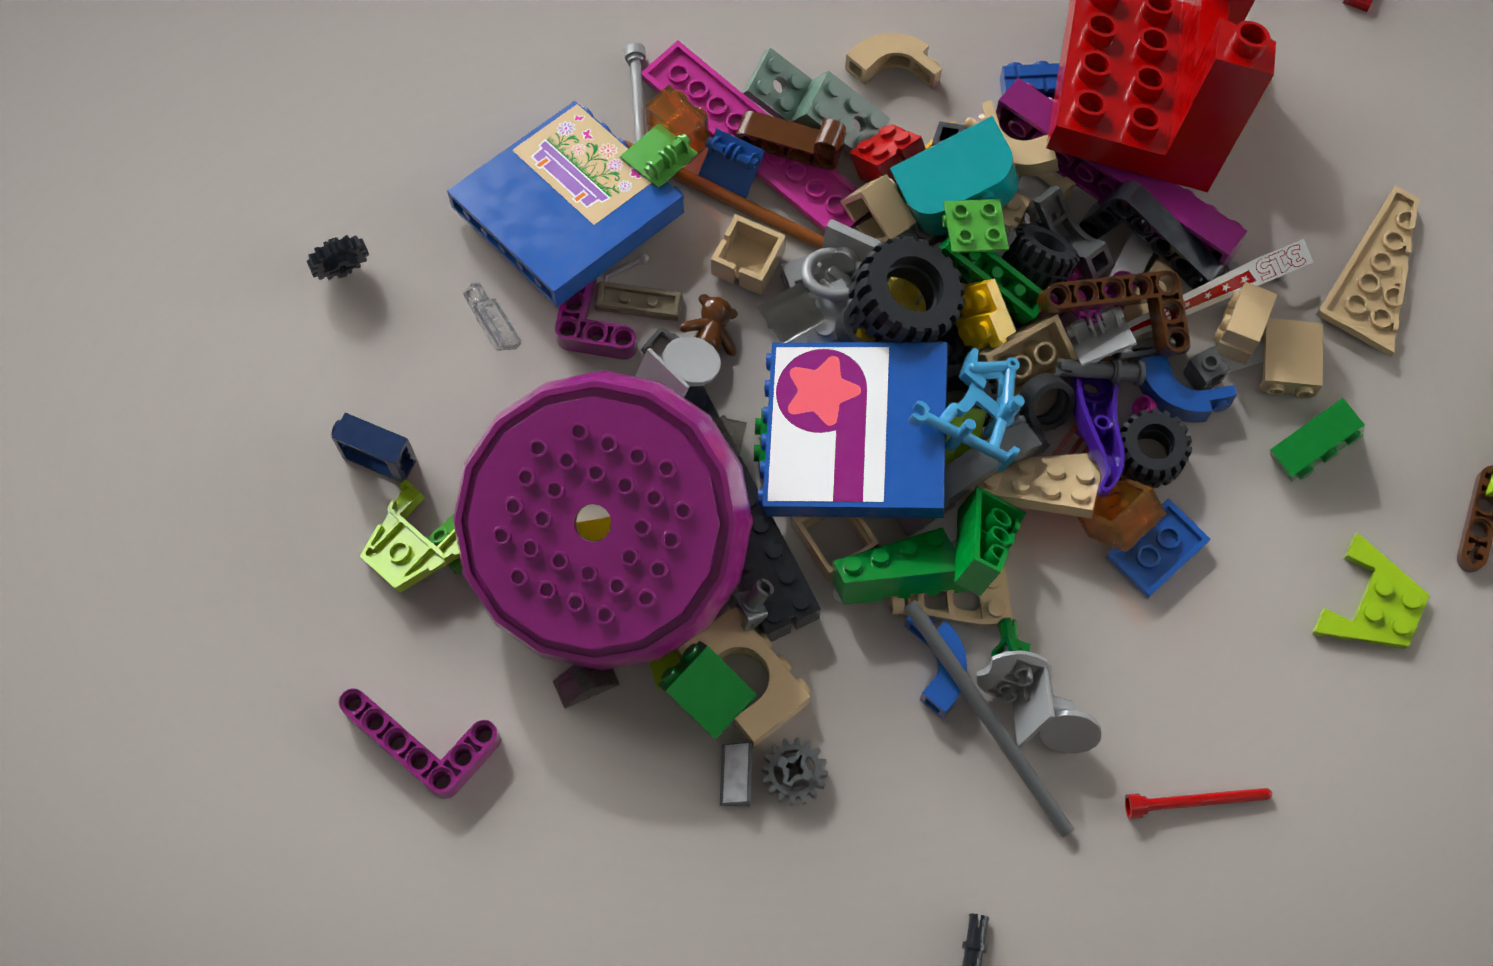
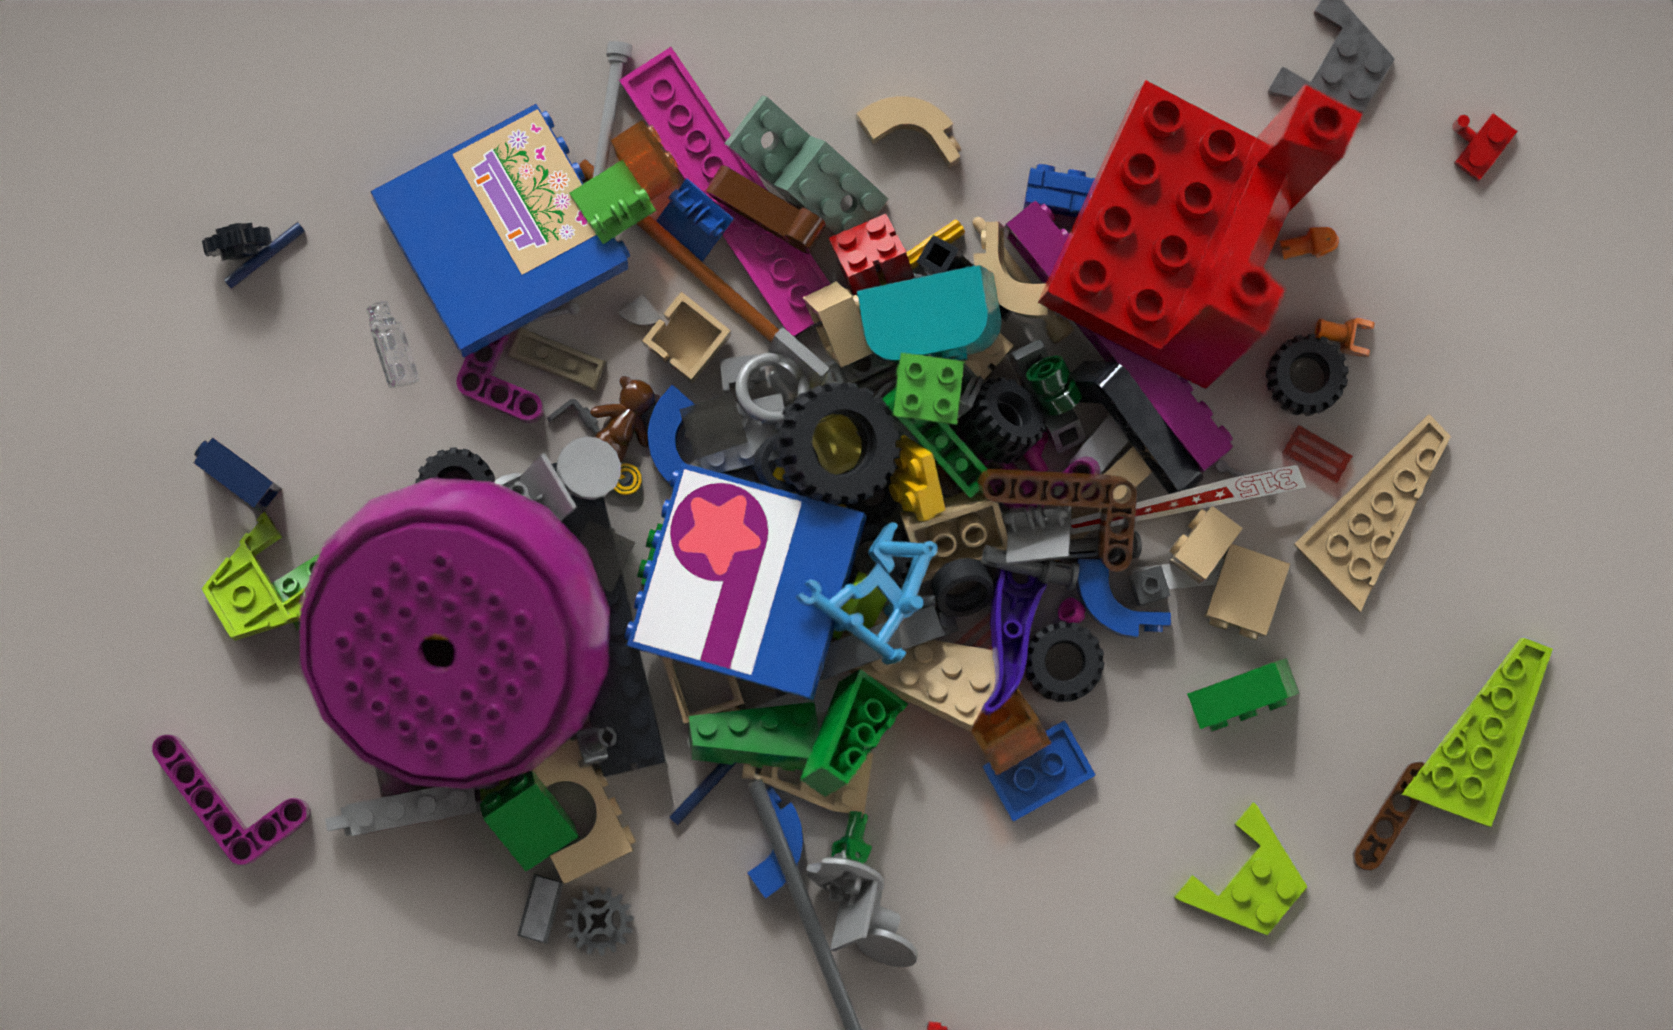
camera: 10 degrees right, 15 degrees up
(364, 271) = (264, 255): none -> dark blue bar
(593, 707) = (406, 810): none -> light grey hinge
(700, 248) = (640, 312): none -> light grey tile
(723, 385) = (629, 480): none -> yellow tile
(746, 331) = (663, 431): none -> blue arch
(859, 634) = (700, 792): none -> dark blue bar
(1079, 220) = (1054, 388): none -> dark green wheel
(1292, 159) = (1319, 351): none -> black tyre
(1303, 142) = (1344, 334): none -> orange piece
(1312, 235) = (1322, 443): none -> clear red tile

